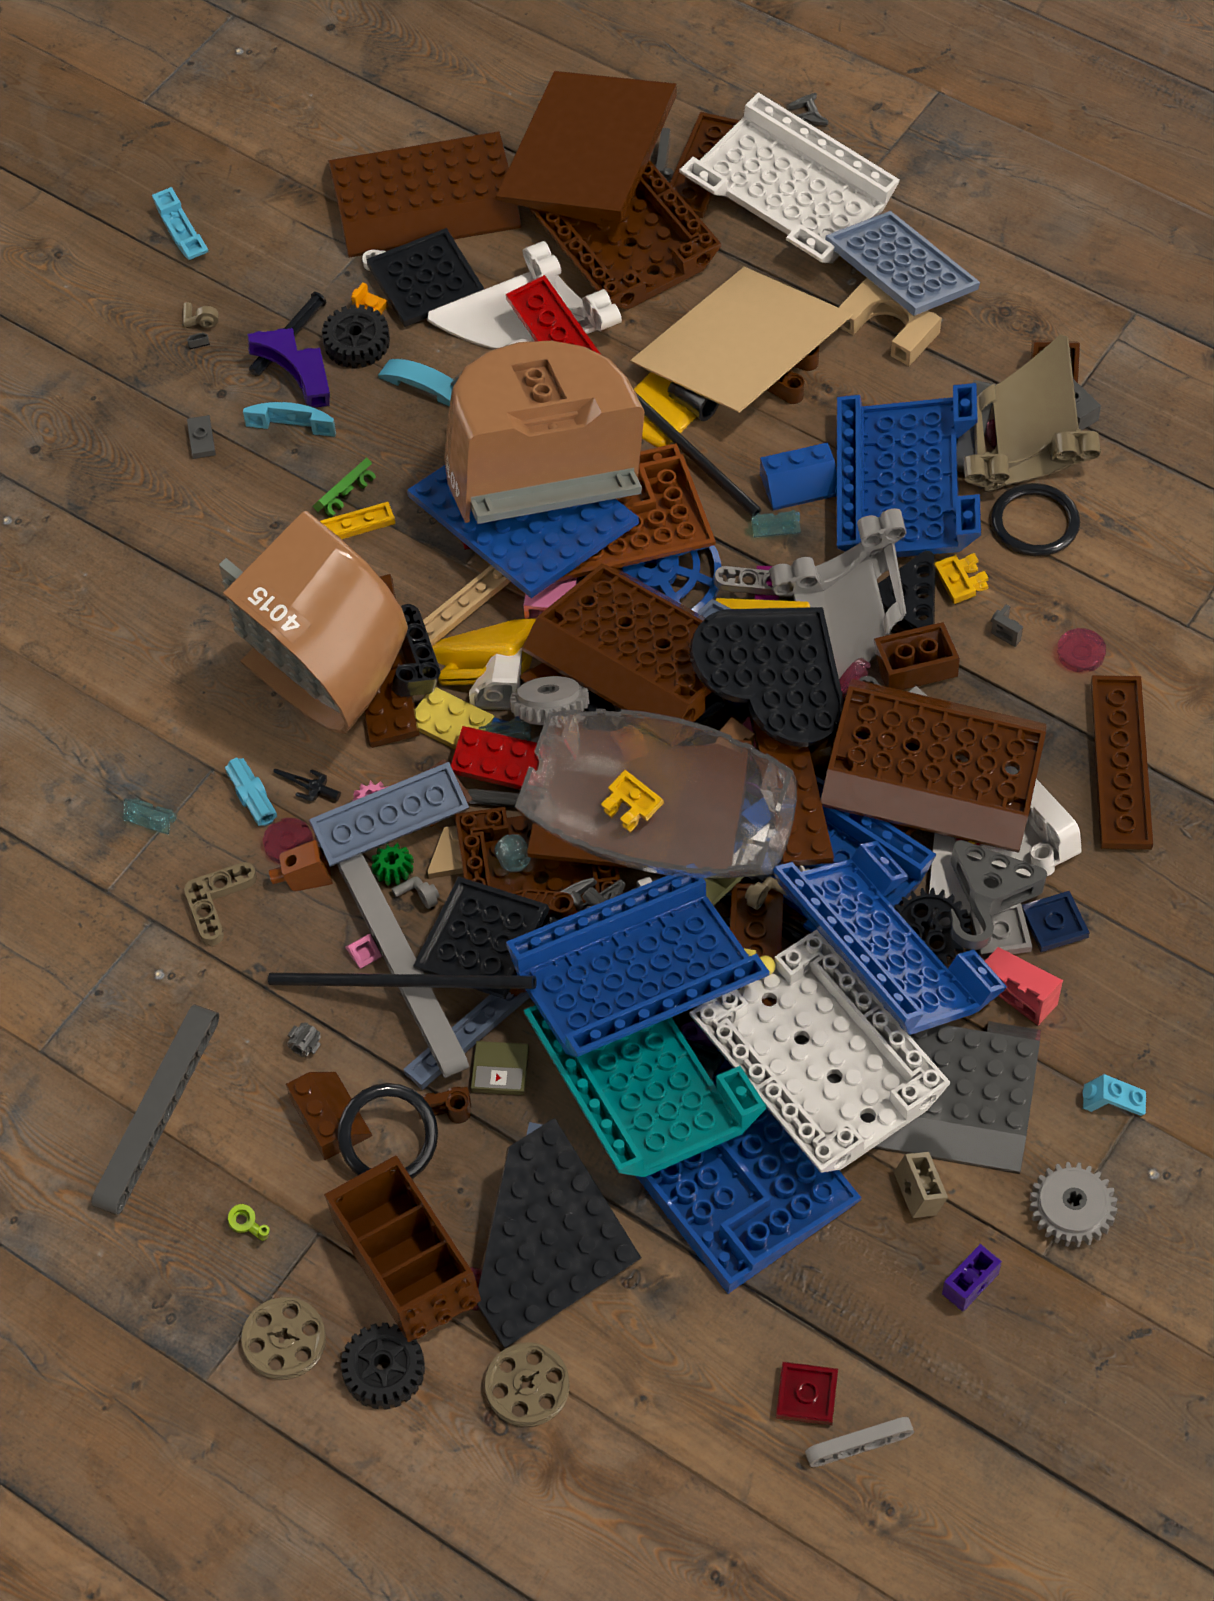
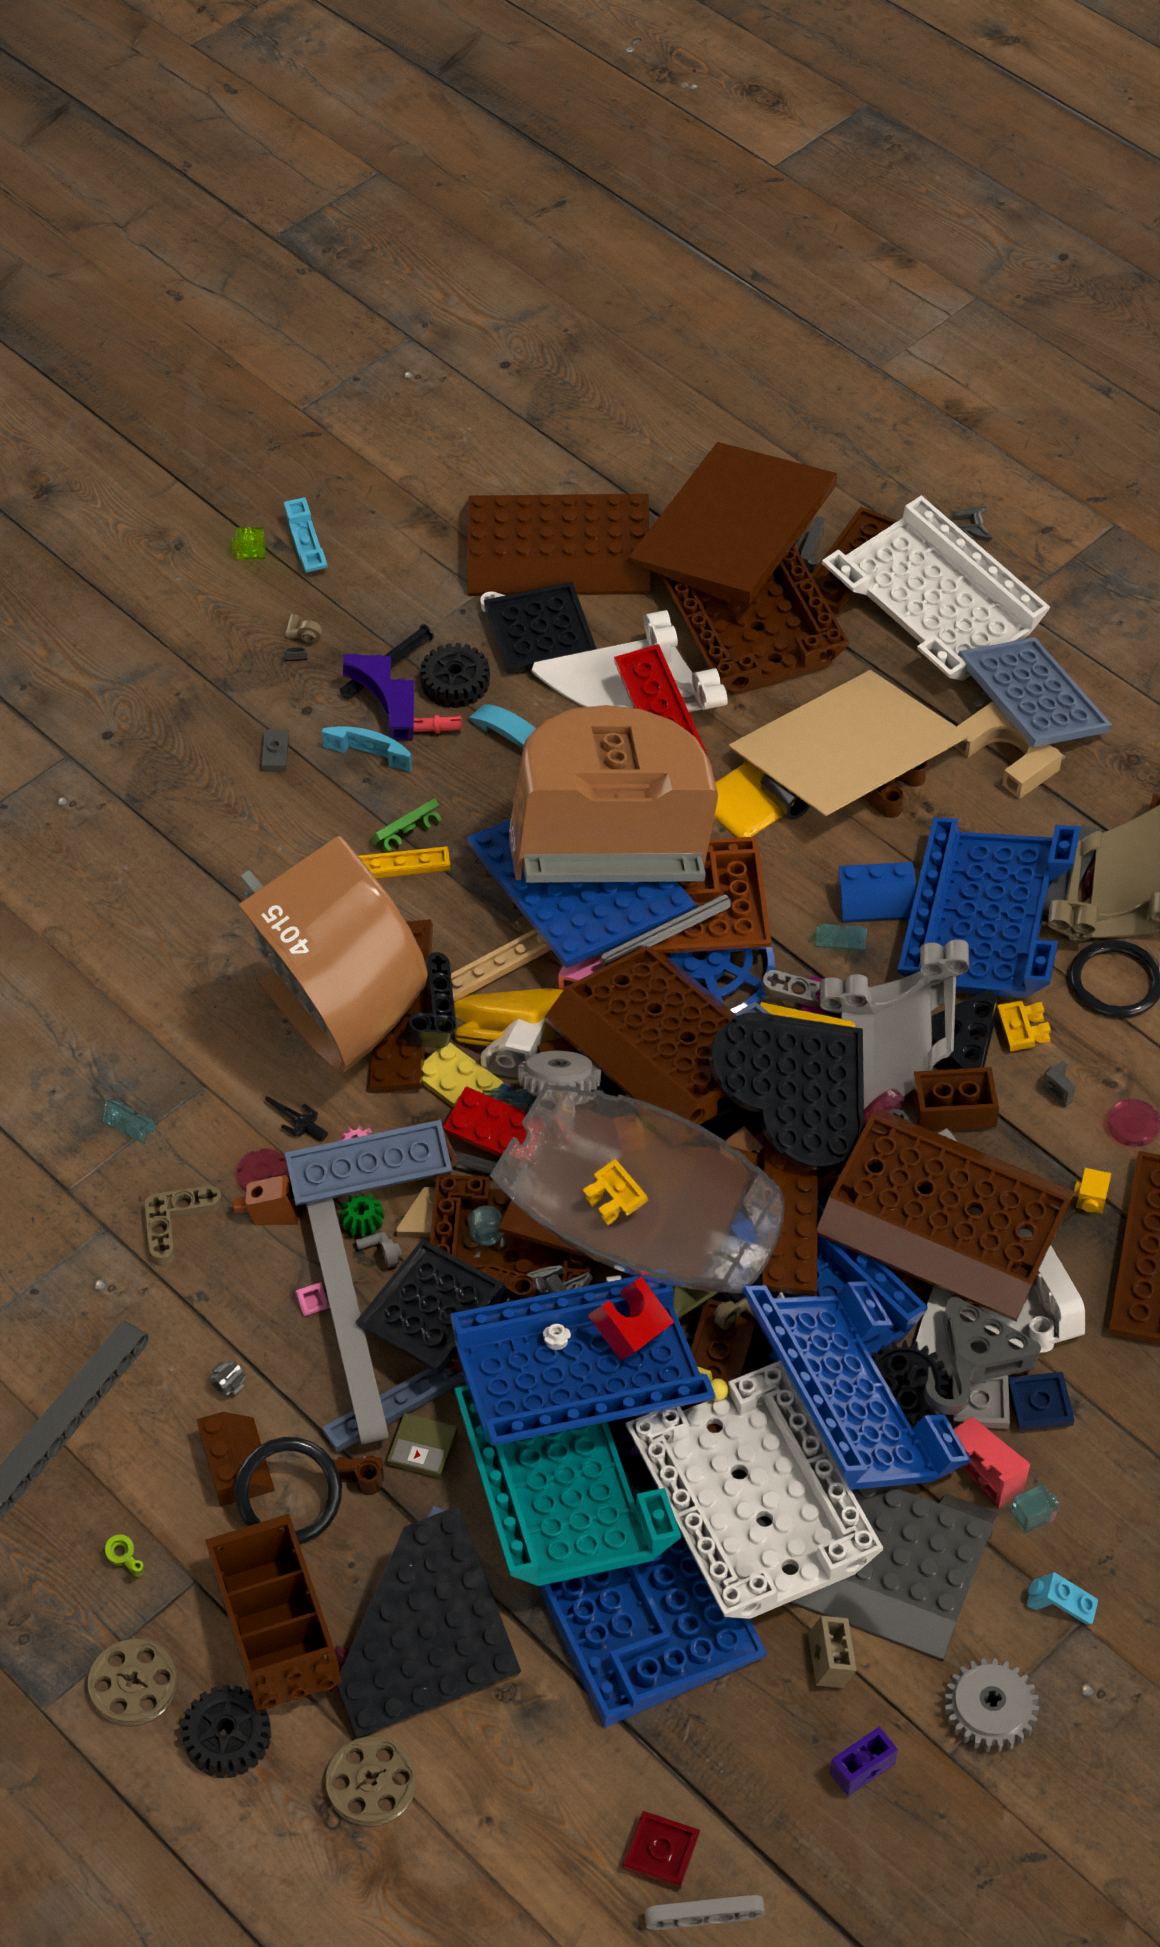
camera: 10 degrees right, 5 degrees down
(127, 240) = (249, 543): none -> clear neon green brick
(250, 791) = (236, 1115): medium azure piece -> none
(351, 386) = (437, 724): none -> coral pin
(363, 297) = (474, 639): light orange bracket -> none
(403, 980) = (340, 1335): black piece -> none
(608, 944) = (556, 1336): none -> white plate
(615, 546) = (667, 929): none -> dark grey axle
(687, 916) = (630, 1333): none -> red piece
(699, 459) = (767, 844): black piece -> none
(1059, 719) = (1092, 1190): none -> yellow brick
(1072, 1019) = (1035, 1508): none -> clear light blue brick

